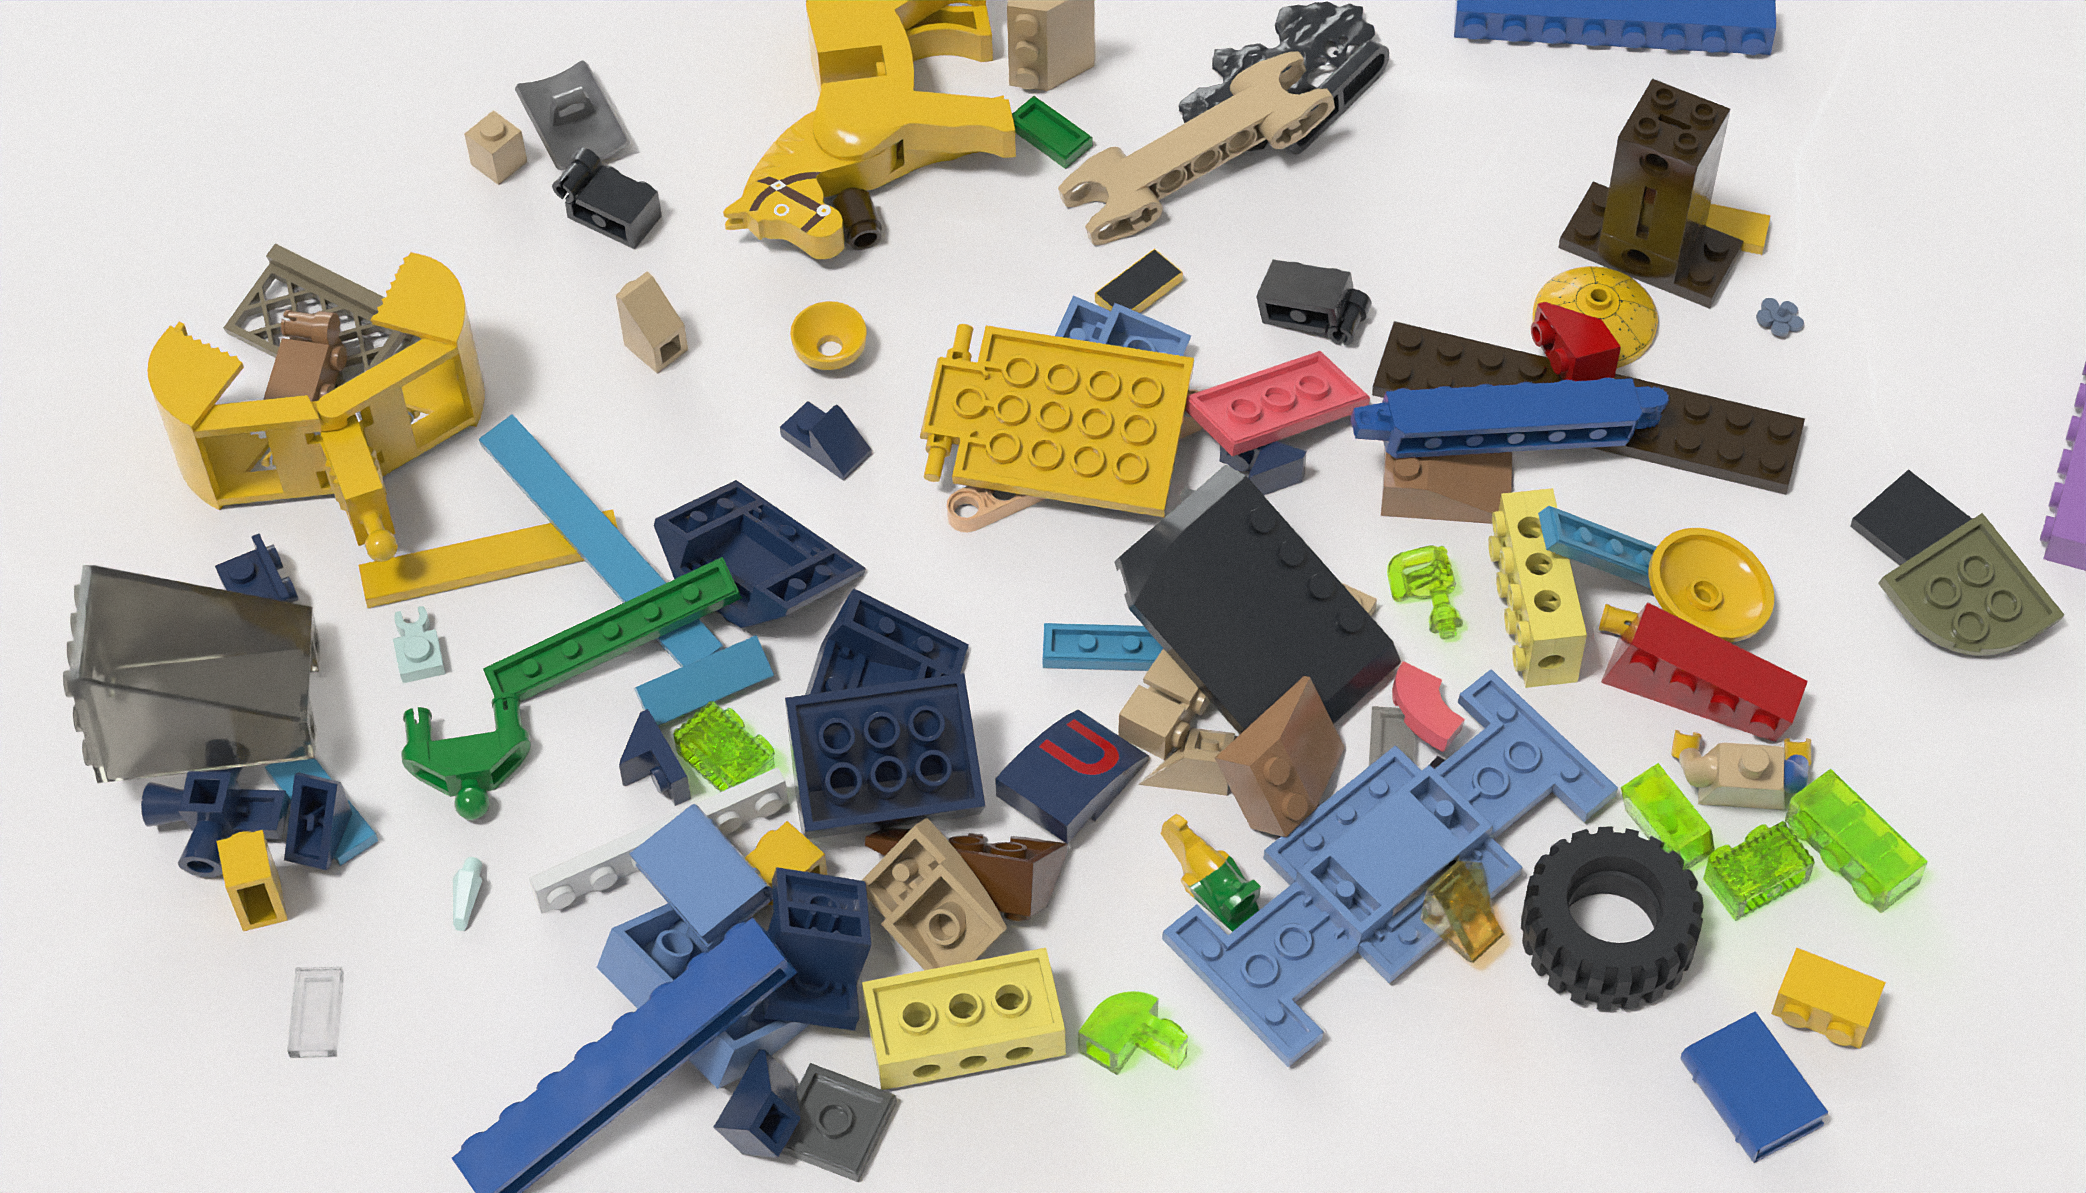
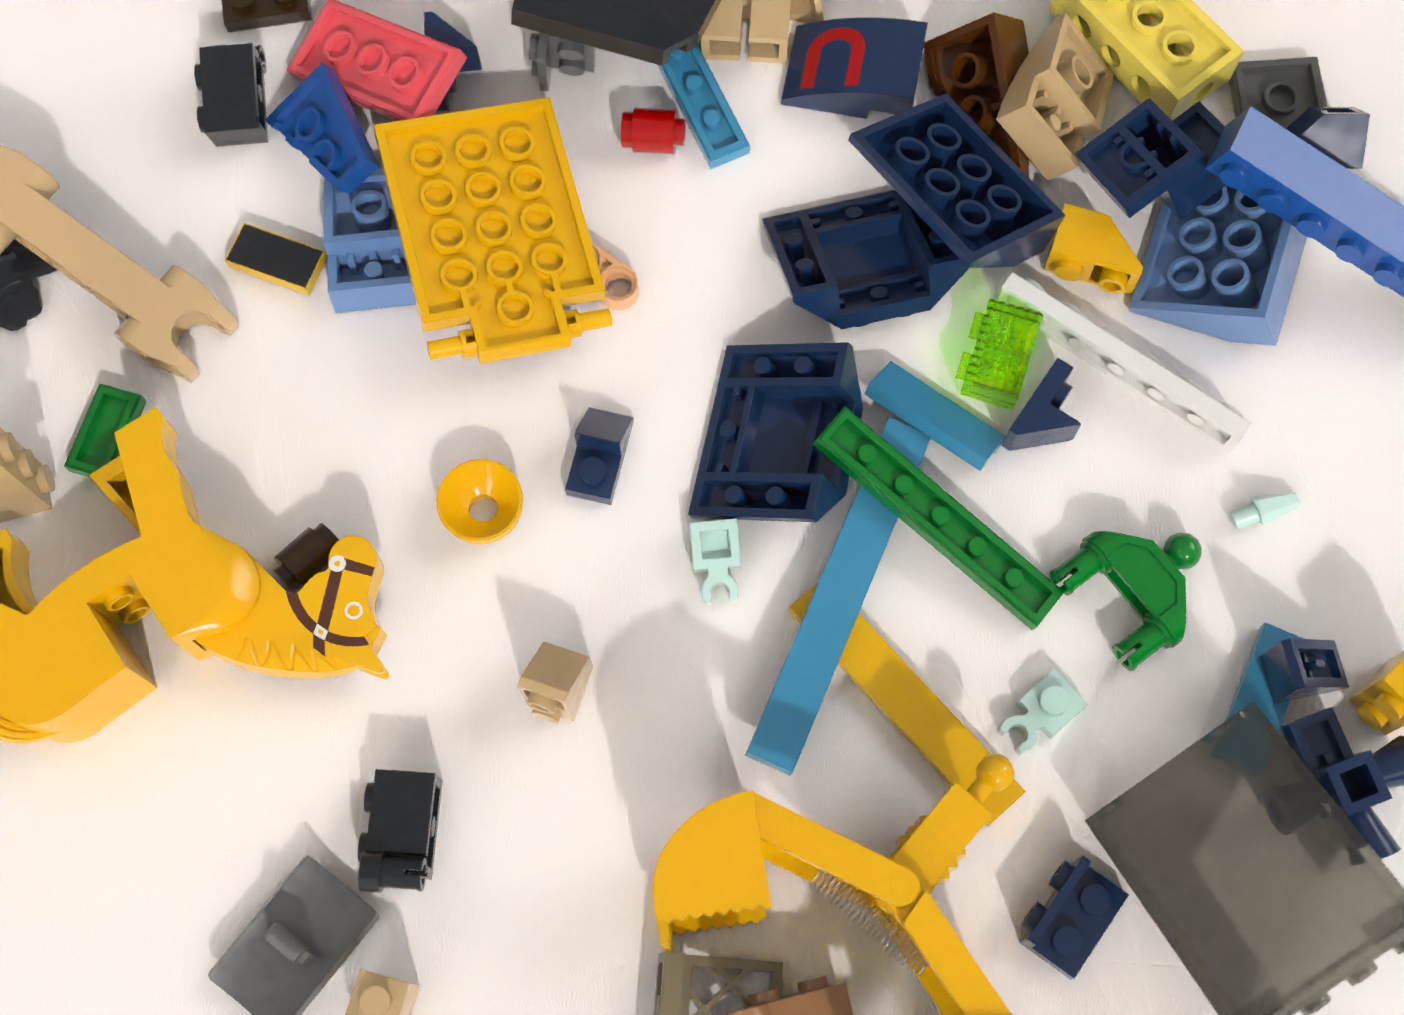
camera: 115 degrees left, 15 degrees up
(684, 480) = (716, 550): none -> light aqua plate
(702, 875) = (1157, 281): medium blue piece -> none
(1097, 589) = (652, 130): none -> red brick
(1234, 343) = (326, 130): none -> blue wing

